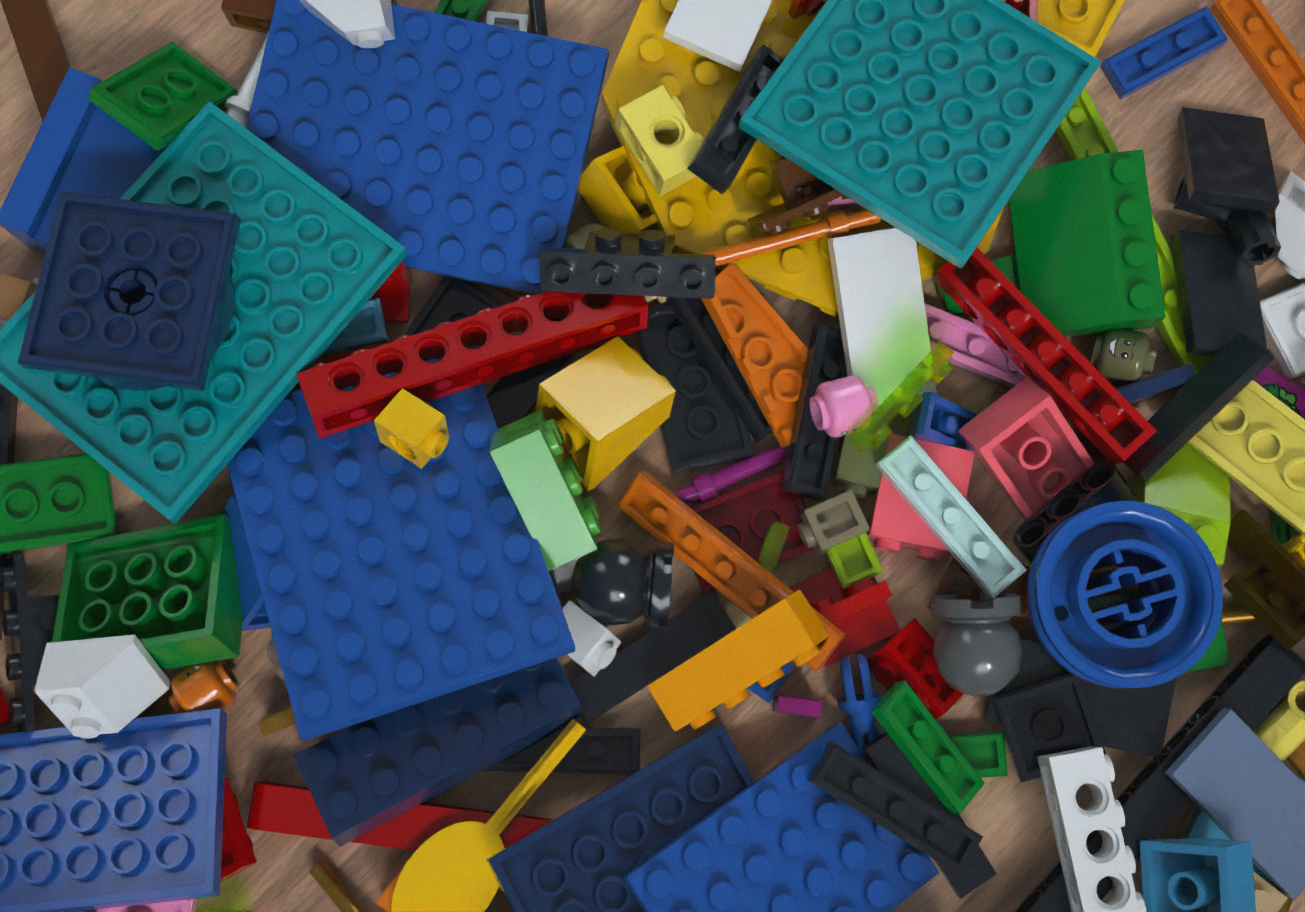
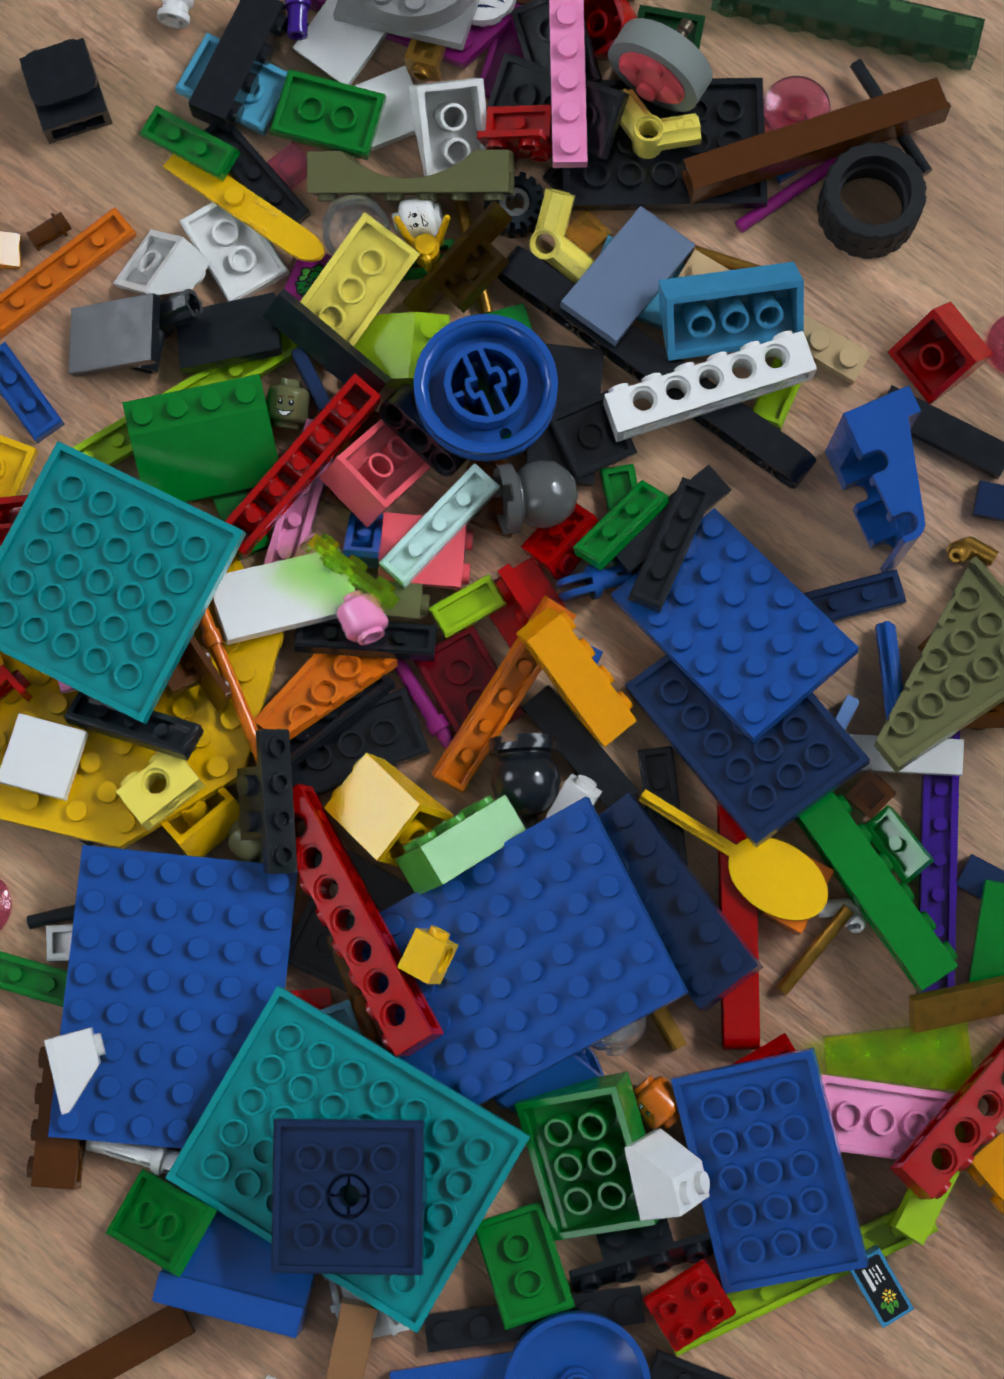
camera: 90 degrees left, 0 degrees up
(773, 546) = (480, 661): clear neon green tile -> none
(797, 705) = (602, 629): magenta tile -> none
(832, 522) = (456, 617): dark tan bracket -> none

